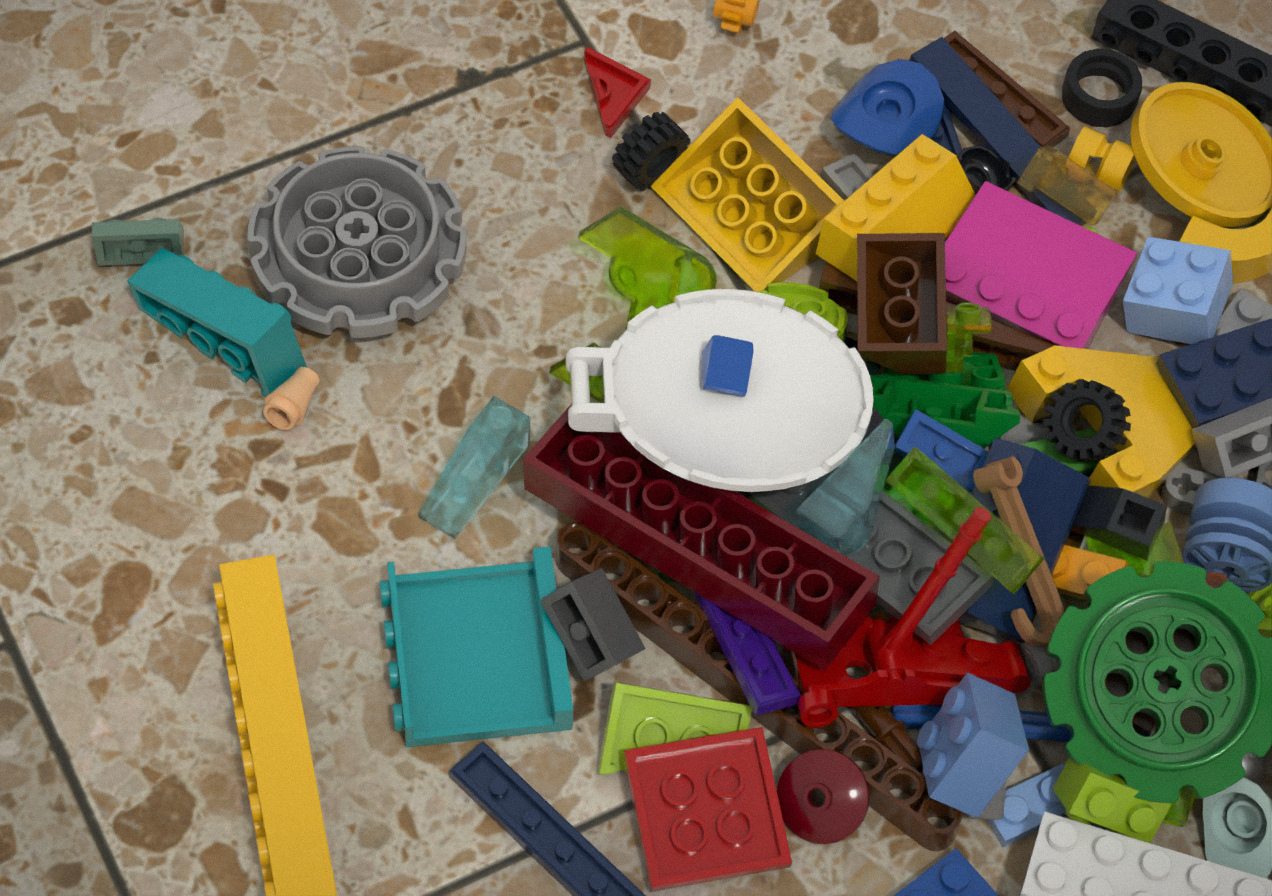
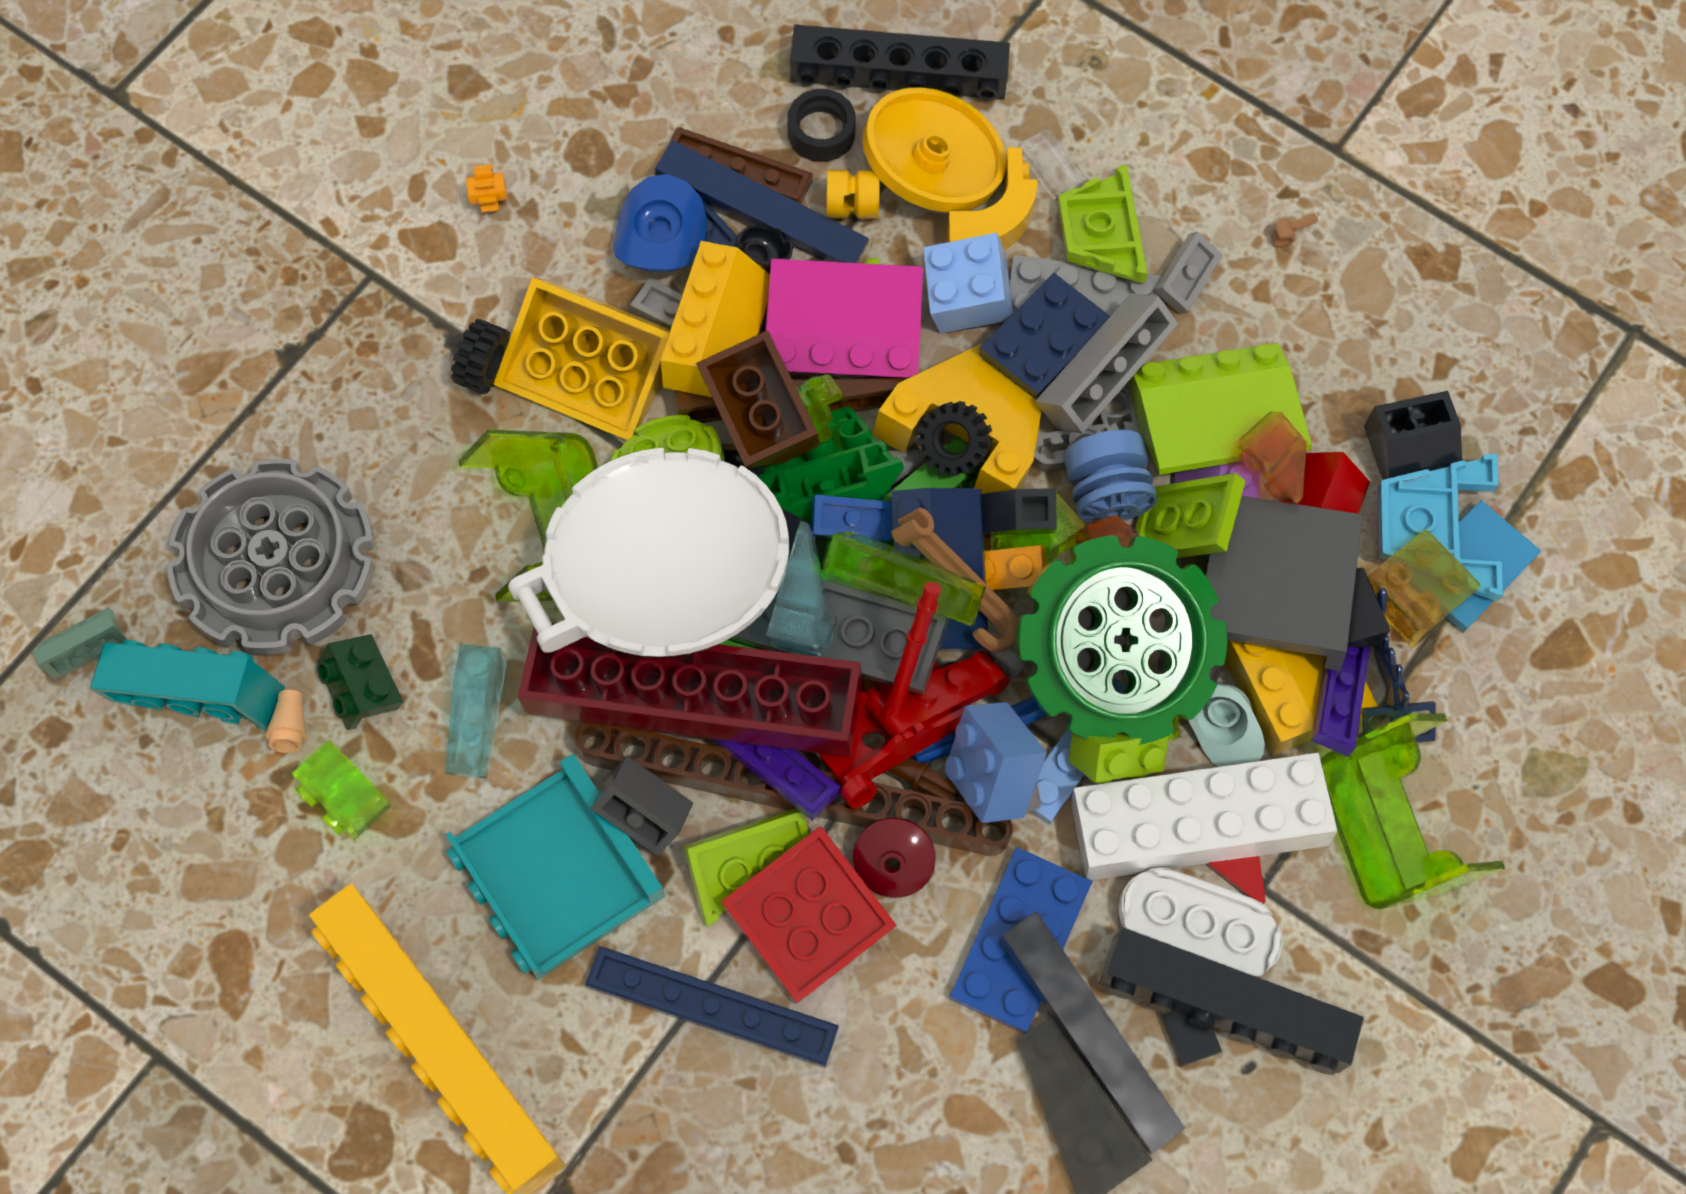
camera: 25 degrees left, 10 degrees up
(309, 481) = (340, 790): none -> clear neon green brick
(378, 390) = (357, 680): none -> dark green bracket
(614, 88) = (419, 307): red tile -> none
(727, 365) = (644, 530): blue slope -> none
(1068, 184) = (838, 229): clear yellow bracket -> none

